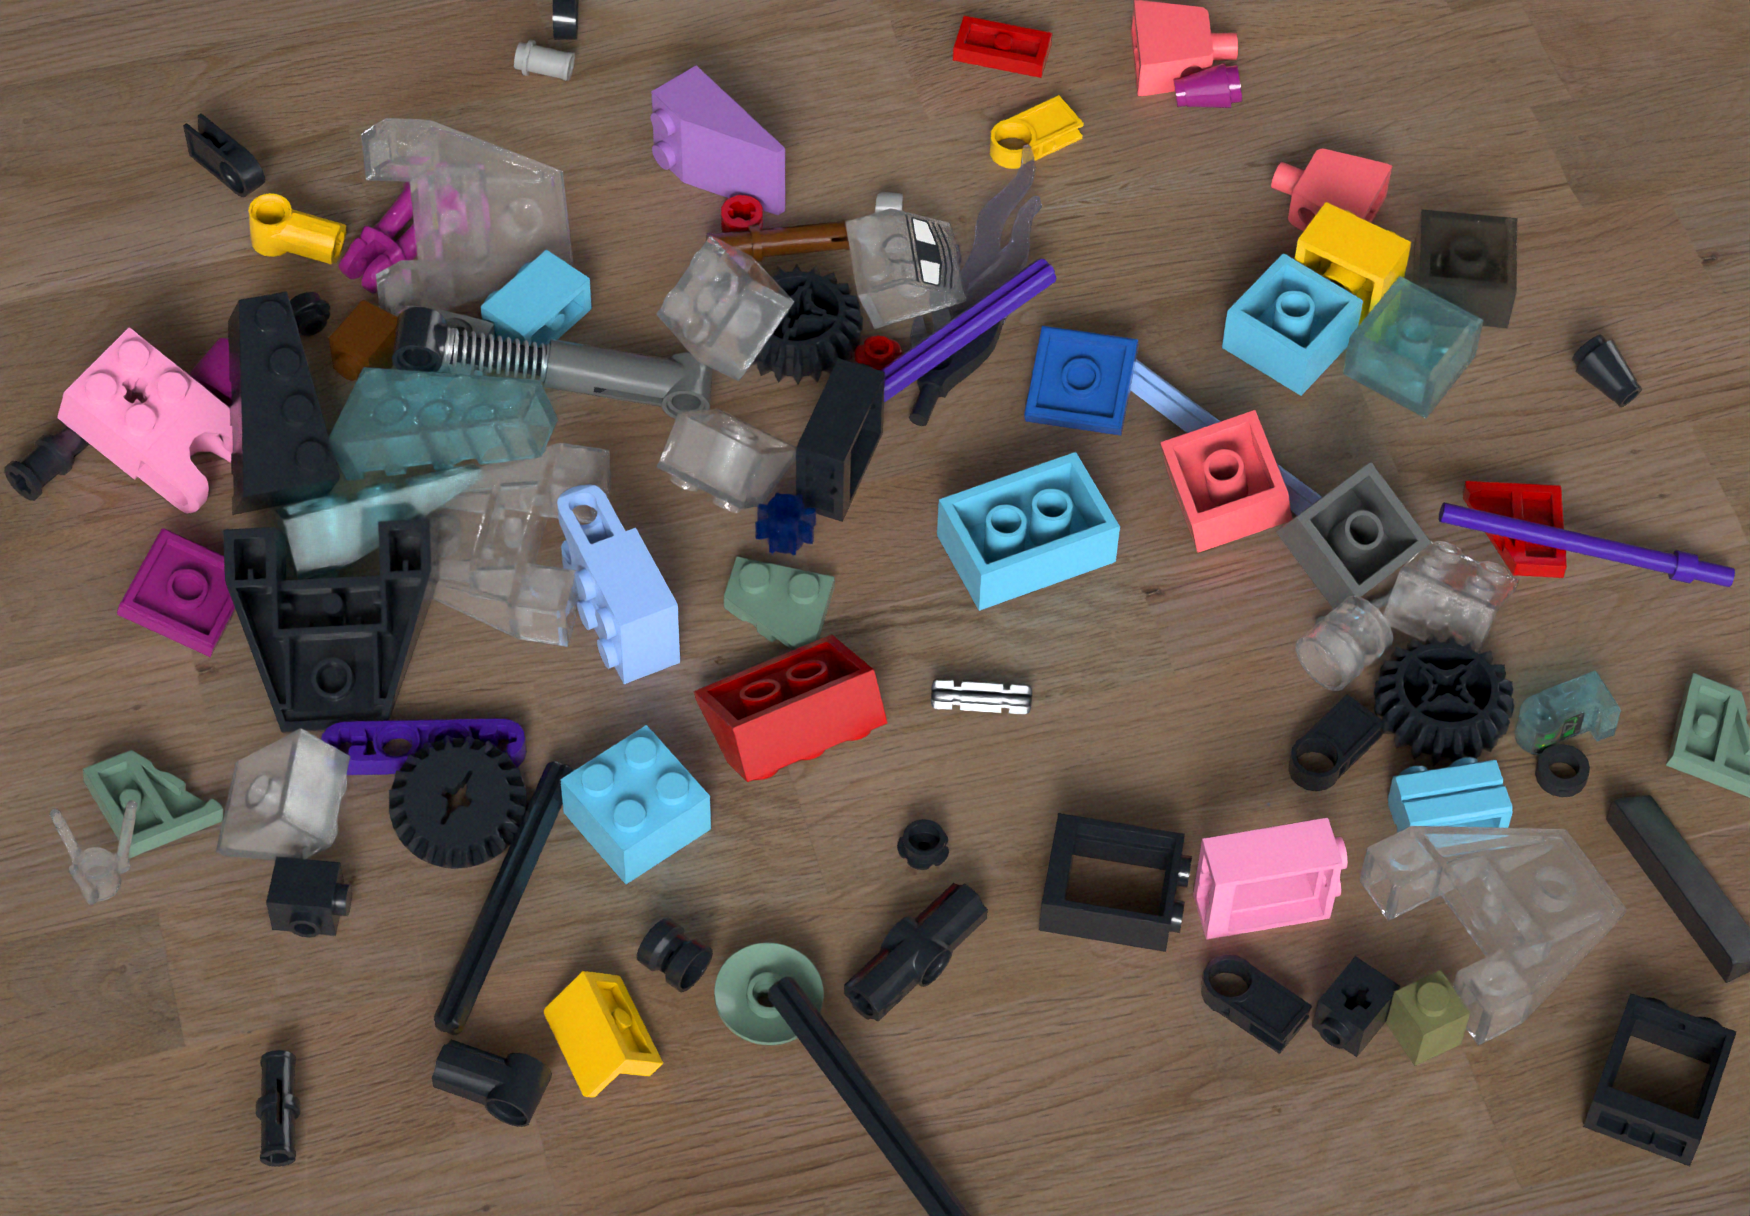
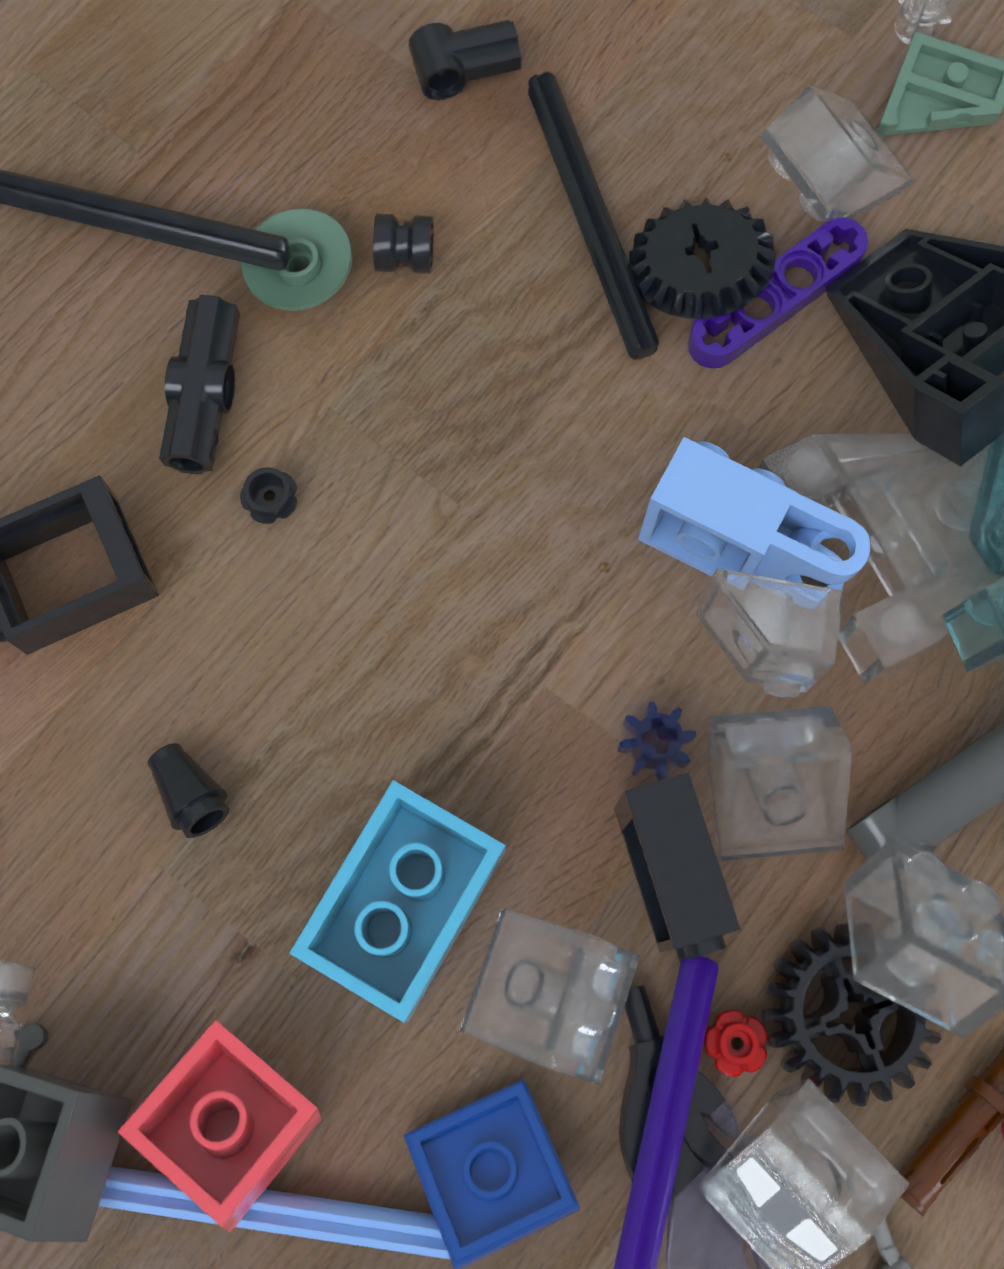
camera: 145 degrees right, 20 degrees up
(307, 896) = (742, 94): black brick -> none
(600, 1032) = (408, 153): yellow panel -> none
(636, 804) = (545, 345): medium azure brick -> none
(653, 499) = (773, 628): none -> clear slope
(779, 600) = (593, 658): sand green wing -> none
(792, 707) = (489, 535): red slope -> none
(972, 435) = (550, 995): none -> clear slope
(981, 696) = (325, 691): axle -> none
(1123, 689) = (187, 792): none -> black cone

